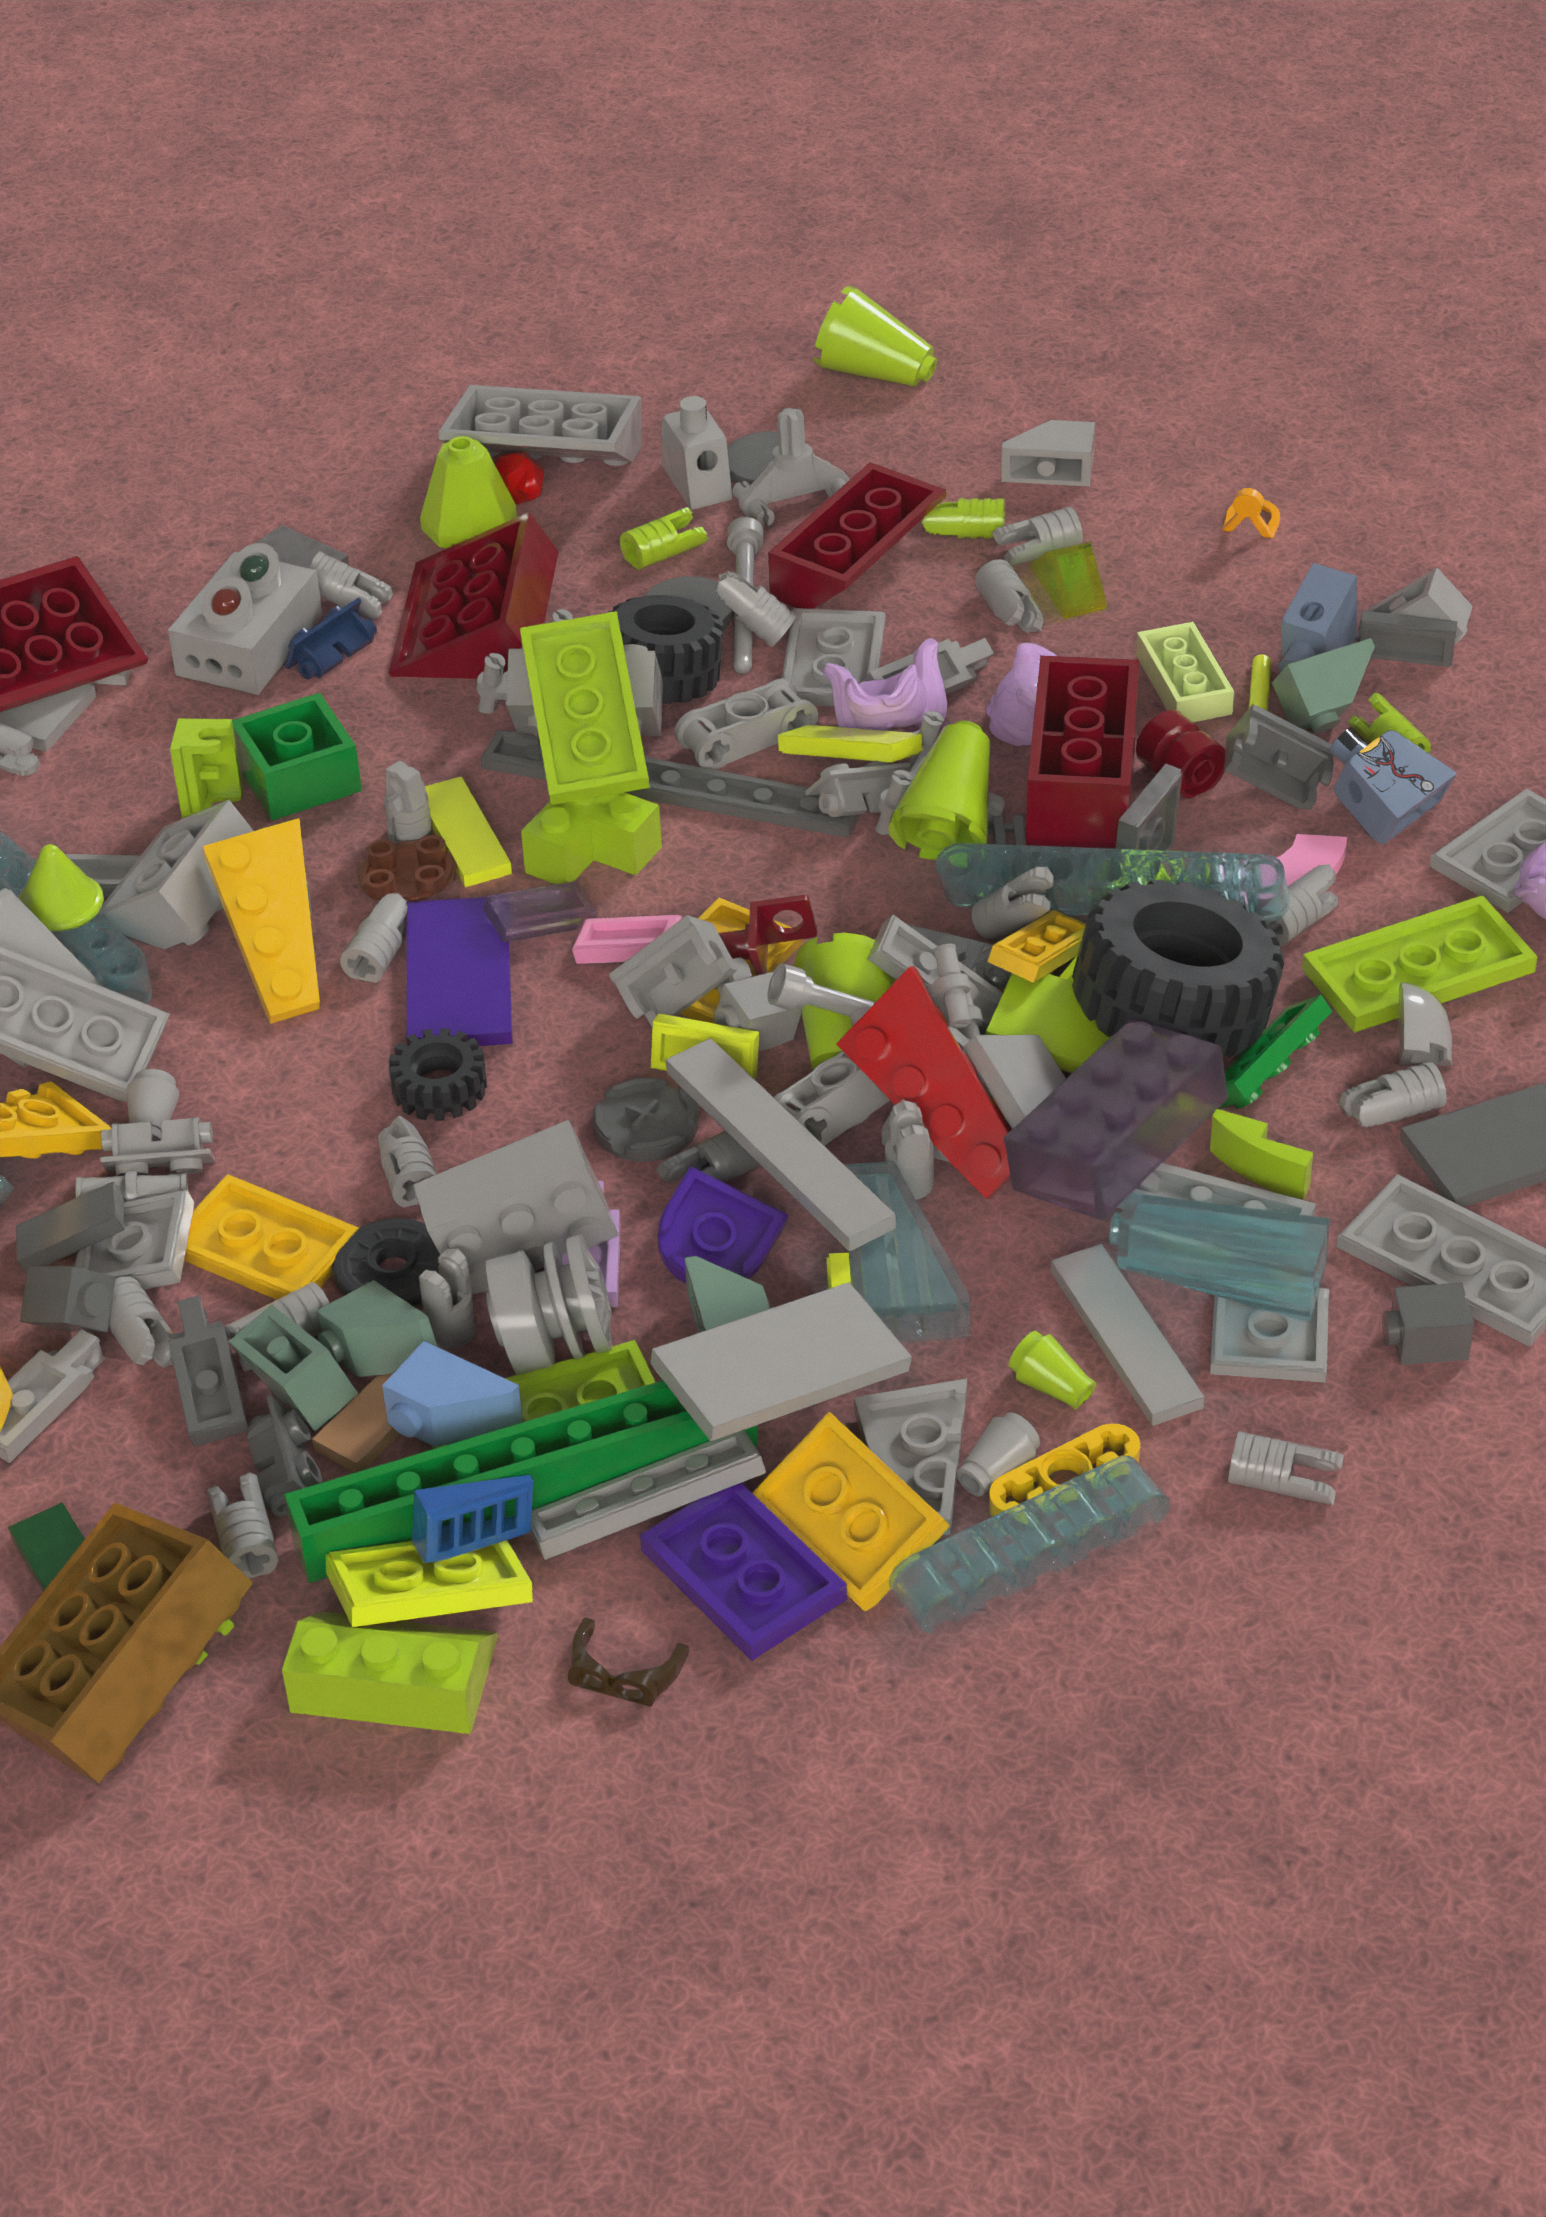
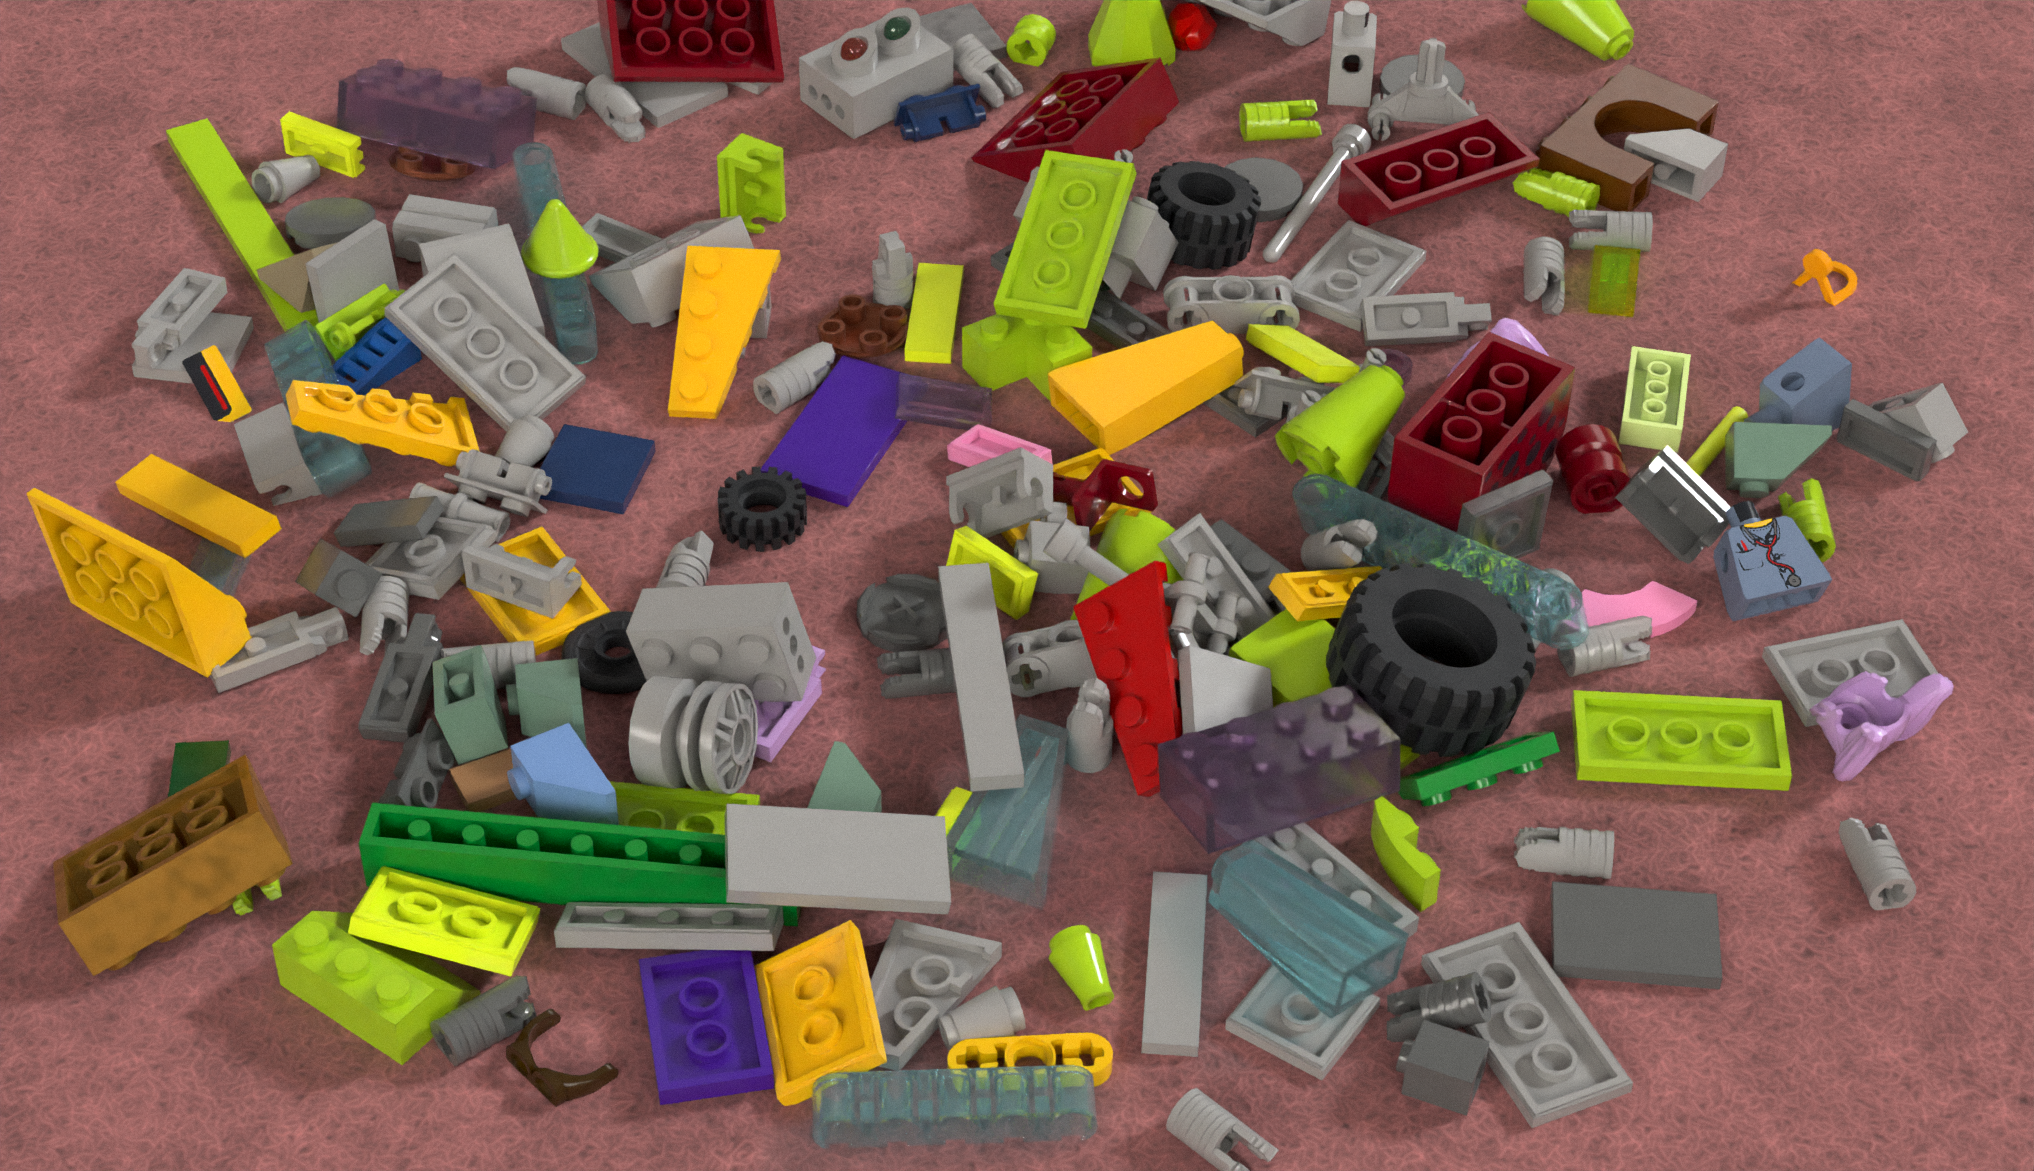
camera: 25 degrees right, 0 degrees up
(240, 1098) = (596, 468): none -> dark blue tile
(244, 1528) = (343, 820): light grey hinge -> none
(250, 1230) = (518, 578): none -> light grey hinge
(296, 756) = (834, 200): green brick -> none
(365, 530) = (1041, 37): none -> lime wheel
(449, 1300) = (619, 696): light grey hinge -> none
(451, 1502) = (496, 864): blue slope -> none
(528, 1656) = (484, 1020): none -> dark grey hinge
(718, 1226) = (891, 729): dark purple tile -> none
(724, 825) = (1145, 385): none -> yellow slope
(755, 607) = (1305, 205): light grey hinge -> none
(890, 701) = (1356, 328): lavender hair -> none
(985, 414) = (1626, 103): none -> reddish brown arch
(1399, 1264) = (1448, 1002): none -> dark grey hinge
(1423, 1028) = (1634, 799): light grey brick -> none

